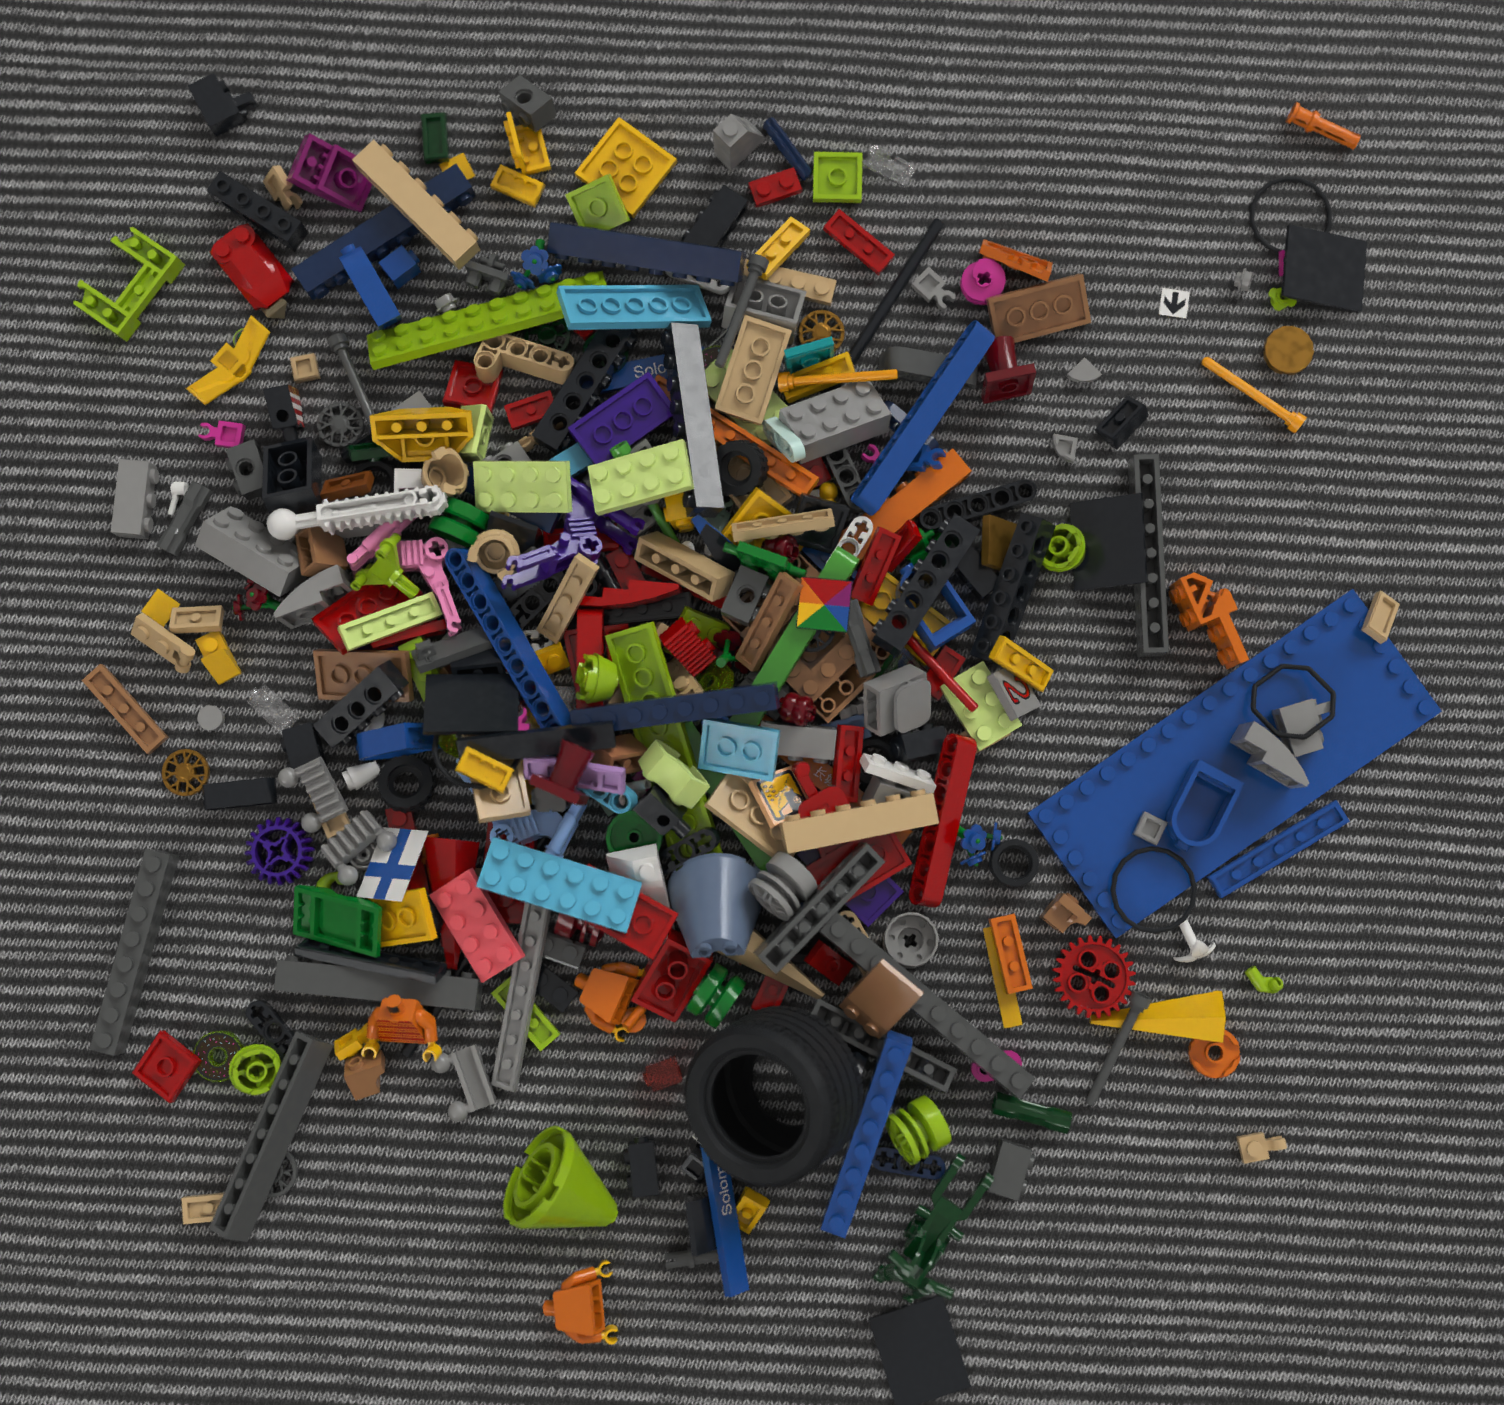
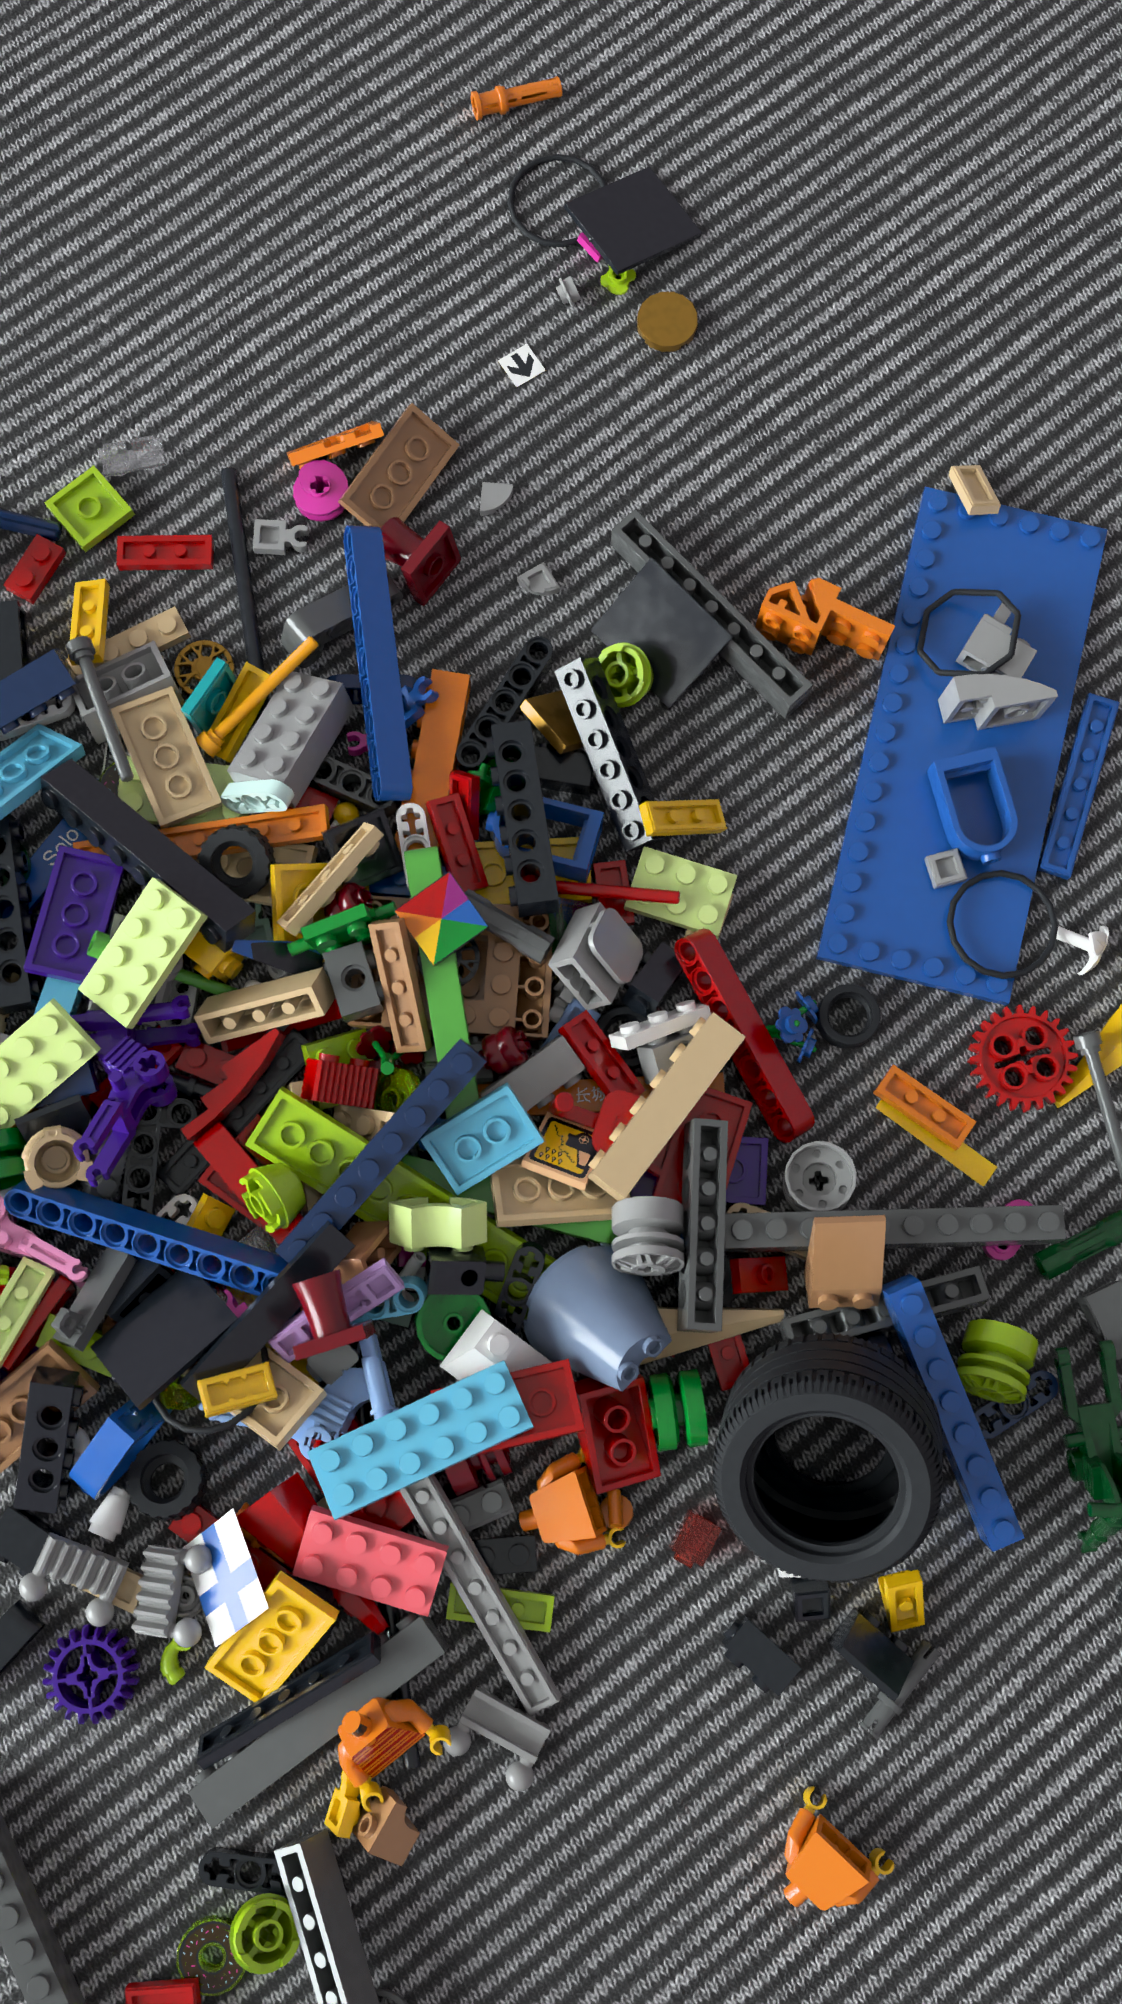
camera: 45 degrees left, 5 degrees down
(337, 919) = (216, 1689): green slope -> none
(557, 1187) = (691, 1760): lime cone -> none
(567, 598) = (172, 1139): tan plate -> none
(726, 1228) = (899, 1639): blue tile -> none
(1013, 694) = (701, 852): light grey tile -> none
(1063, 912) = (938, 1021): medium nougat brick -> none
(1122, 421) = (572, 512): black slope -> none
(1292, 420) = (729, 380): light orange piece -> none

